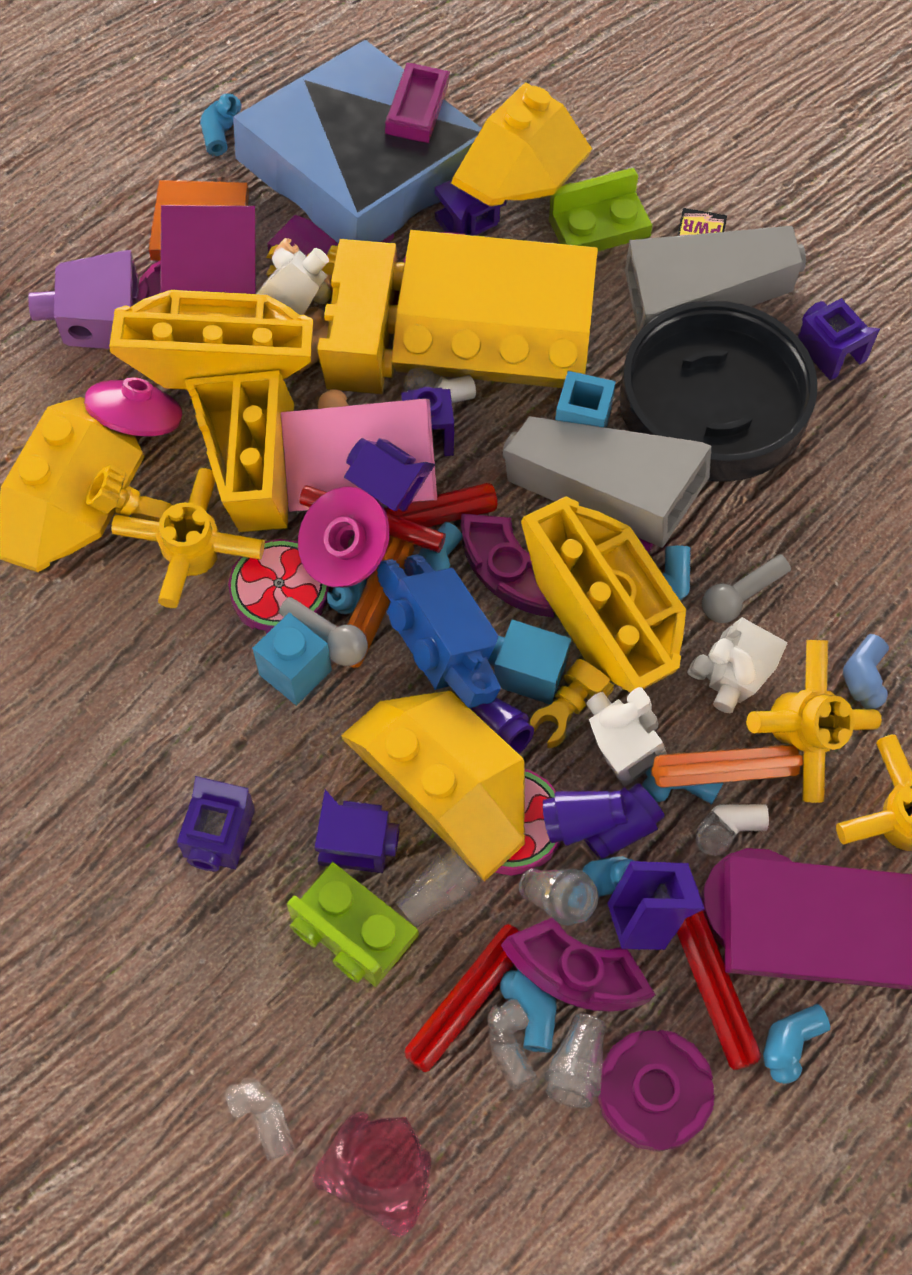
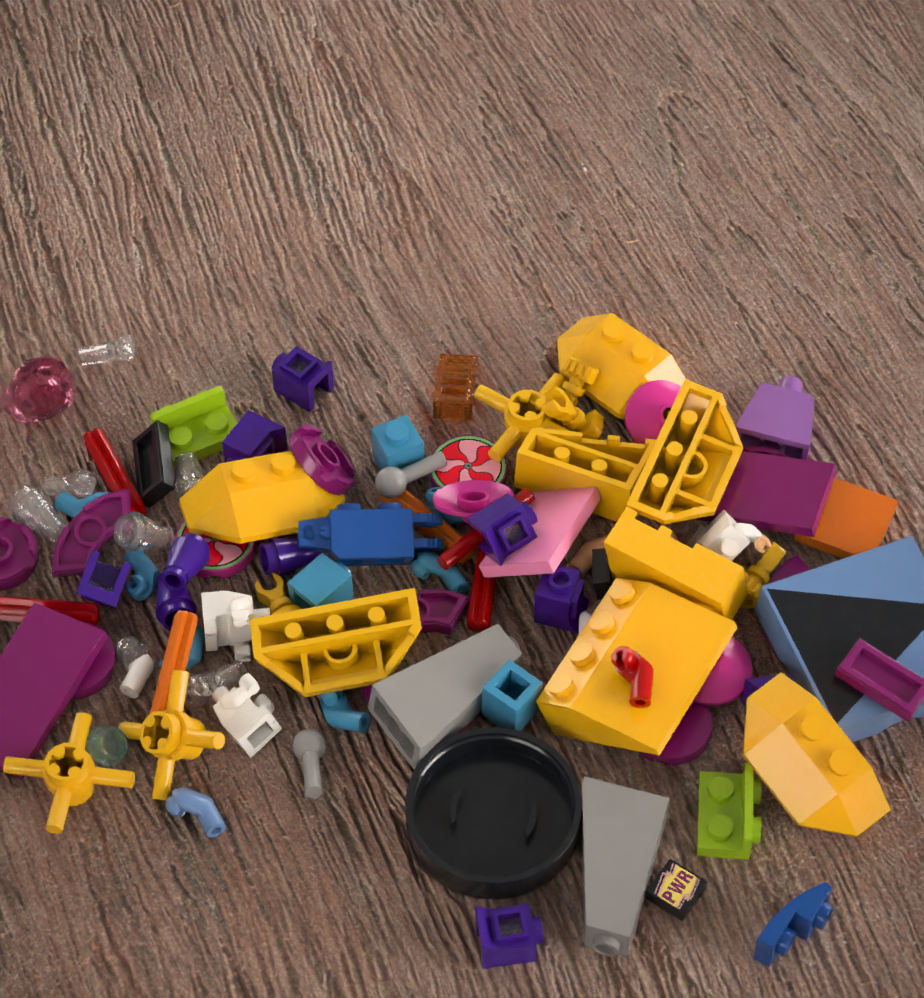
camera: 115 degrees right, 10 degrees down
(172, 483) = (572, 417): none -> yellow piece
(176, 657) = (455, 406): none -> clear orange slope
(353, 731) = (322, 460): none -> magenta tile
(380, 388) = (601, 572): none -> black tile
(433, 947) = (153, 463): none -> black tile
(527, 275) = (637, 673): none -> red arm
(699, 140) = (795, 919): none -> blue slope
(708, 720) = (204, 684): none -> clear arm
(851, 798) = (106, 745): none -> clear light blue plate

